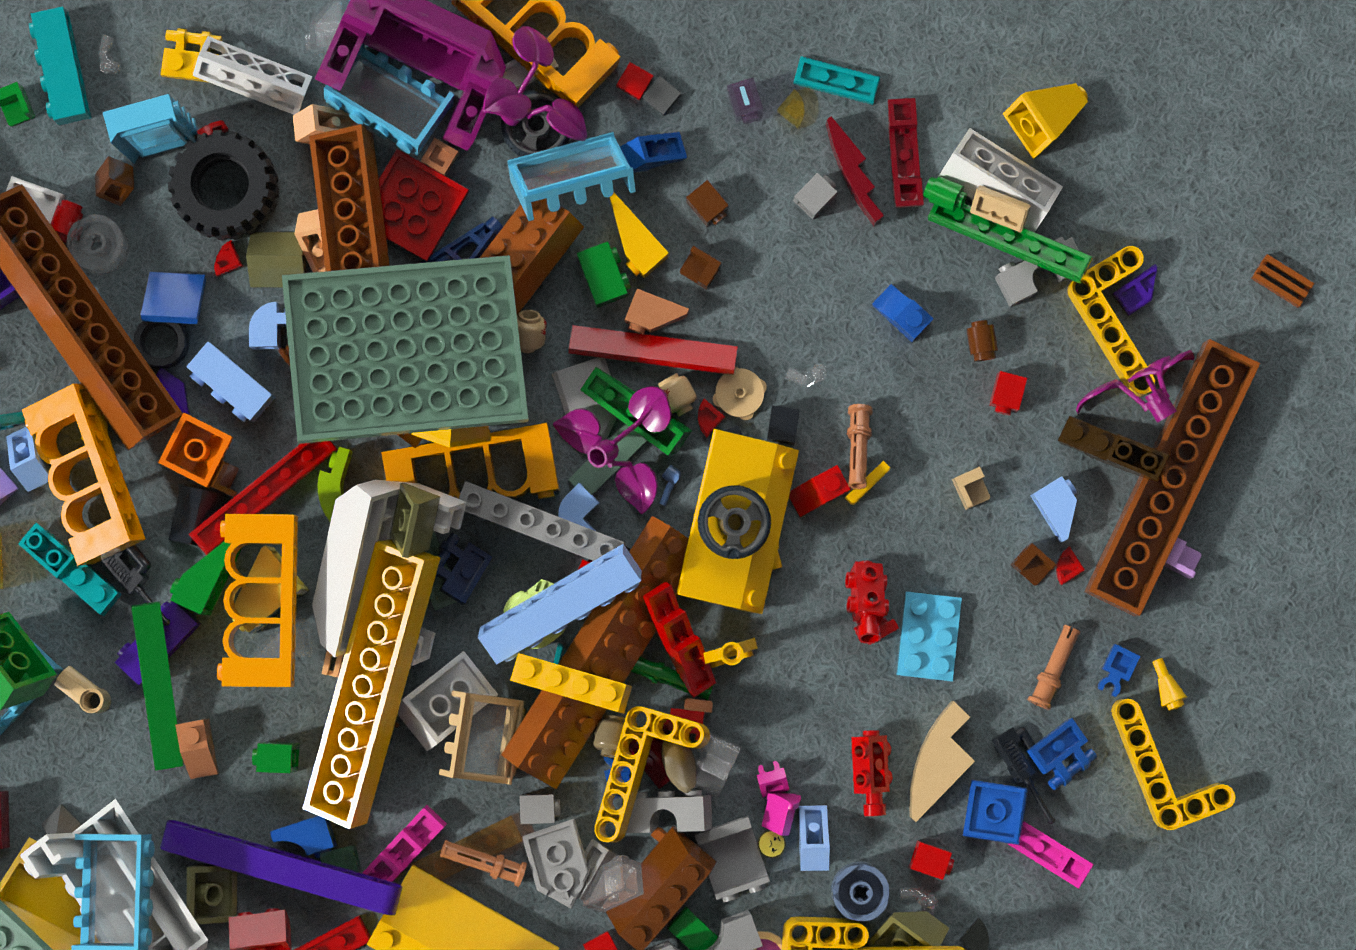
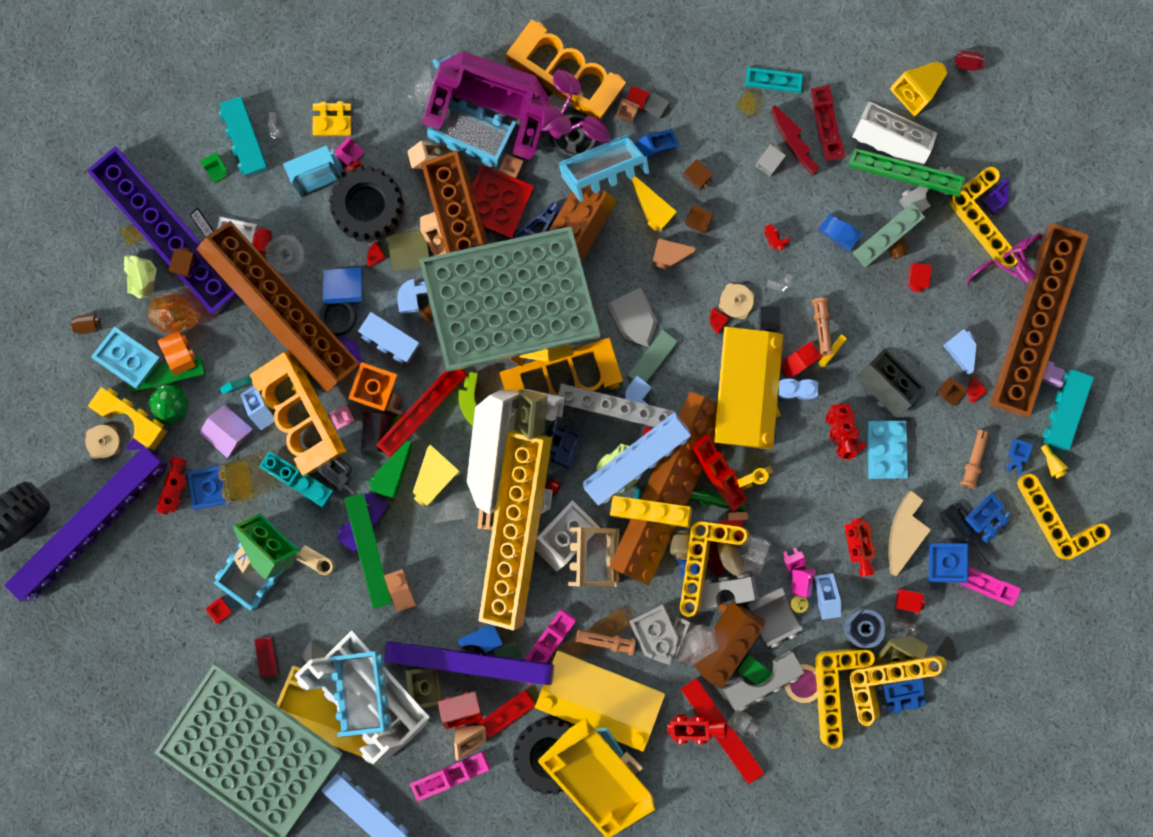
camera: 10 degrees left, 0 degrees up
(114, 181) = (291, 211): reddish brown panel -> none
(148, 487) = (342, 417): none -> bright pink tile
(208, 106) = (348, 152): none -> dark pink panel
(250, 79) = (376, 130): white fence -> none
(261, 529) = (431, 434): light orange fence -> none
(276, 757) = (455, 588): green brick -> none
(440, 627) = (553, 485): none -> red hinge
(531, 330) = (592, 275): tan head -> none
(539, 808) = (638, 600): light grey brick -> none
(581, 430) = (674, 371): magenta plant -> none
(603, 275) = (633, 232): green brick -> none
(616, 397) = (668, 322): green slope -> none
(618, 98) = (627, 111): none -> nougat tile
(653, 349) = (673, 279): red tile -> none
(672, 475) = (698, 363): medium blue hand -> none
(679, 393) = (694, 307): tan head -> none
(713, 508) = (761, 378): dark grey wheel -> none
(745, 101) = (714, 101): clear purple brick -> none
(804, 305) = (772, 235): none -> red bracket
(818, 534) = (802, 390): none -> light blue brick
(945, 193) = (859, 147): green brick -> none
(947, 540) = (891, 383): none -> pearl dark grey slope
(971, 325) = (889, 234): none -> sand green arch
(971, 488) = (902, 345): tan panel -> none
(1000, 208) = (898, 152): tan plate -> none
(1113, 449) = (996, 306): dark brown slope -> none
(1123, 88) = (969, 60): none -> dark red brick
(1198, 612) = (1067, 409): none -> teal brick
(1287, 271) = (1109, 184): dark orange tile -> none

